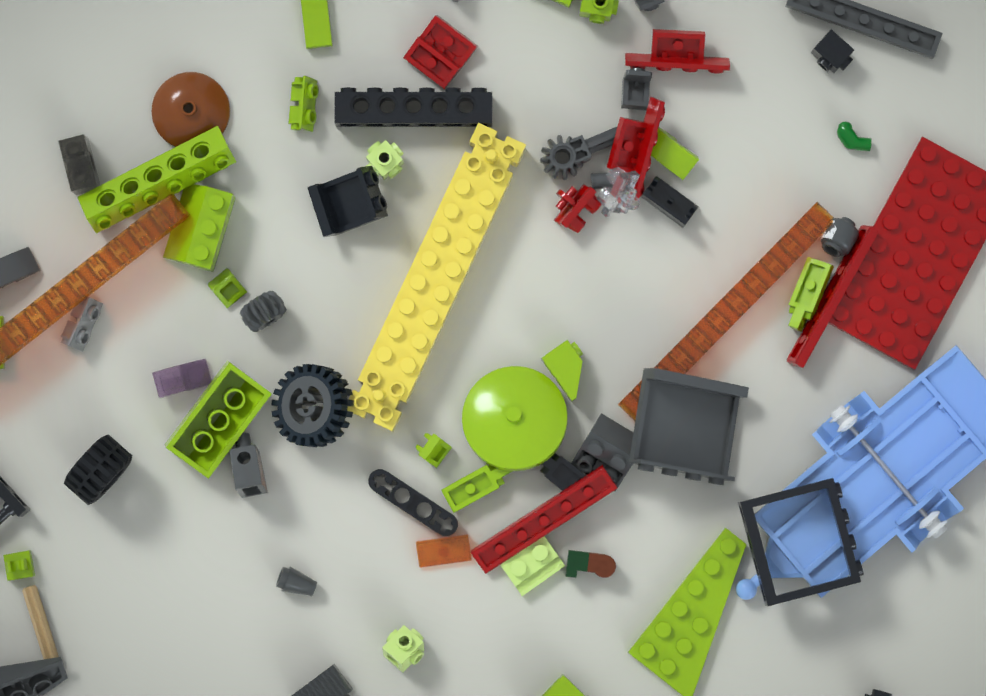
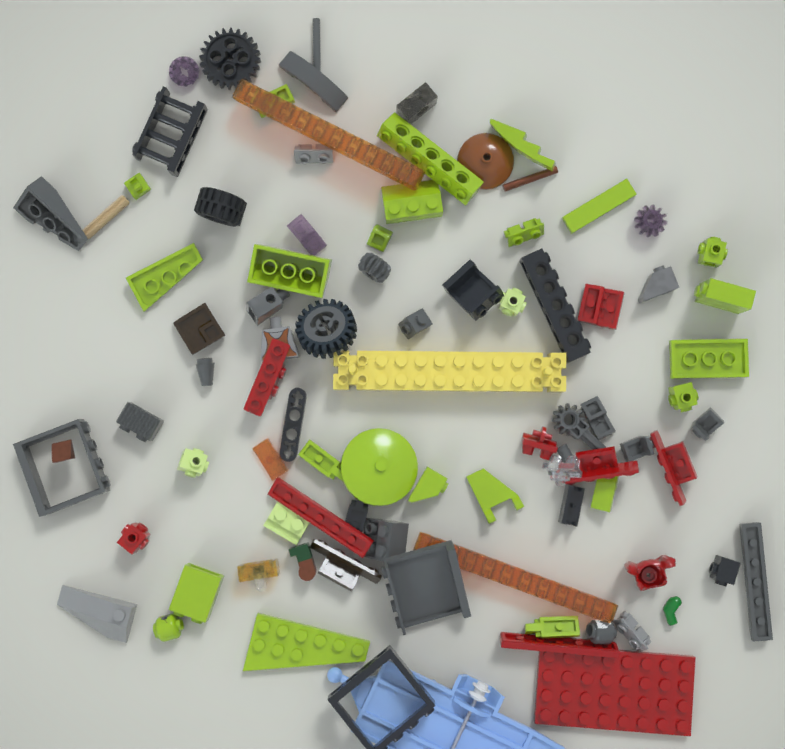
camera: 65 degrees right, 0 degrees up
(150, 589) = (158, 278): none -> lime wing
(183, 59) = (516, 139): none -> lime slope
(238, 567) = (199, 328): none -> dark brown plate
(239, 62) = (528, 179): none -> copper bar
(301, 474) = (280, 333): none -> light grey torso
(340, 507) = (268, 377): none -> red bracket
(356, 292) = (415, 323): none -> dark grey bracket
(434, 450) = (333, 423): lime tile -> none
(577, 120) = (597, 418): none -> dark grey slope
(577, 626) = (258, 572): none -> clear yellow piece
(610, 293) = (491, 492): none -> lime flag
(619, 520) = (341, 568): none -> bracket
(790, 136) = (654, 567): none -> red hair
(869, 197) = (637, 638): none -> light grey hinge

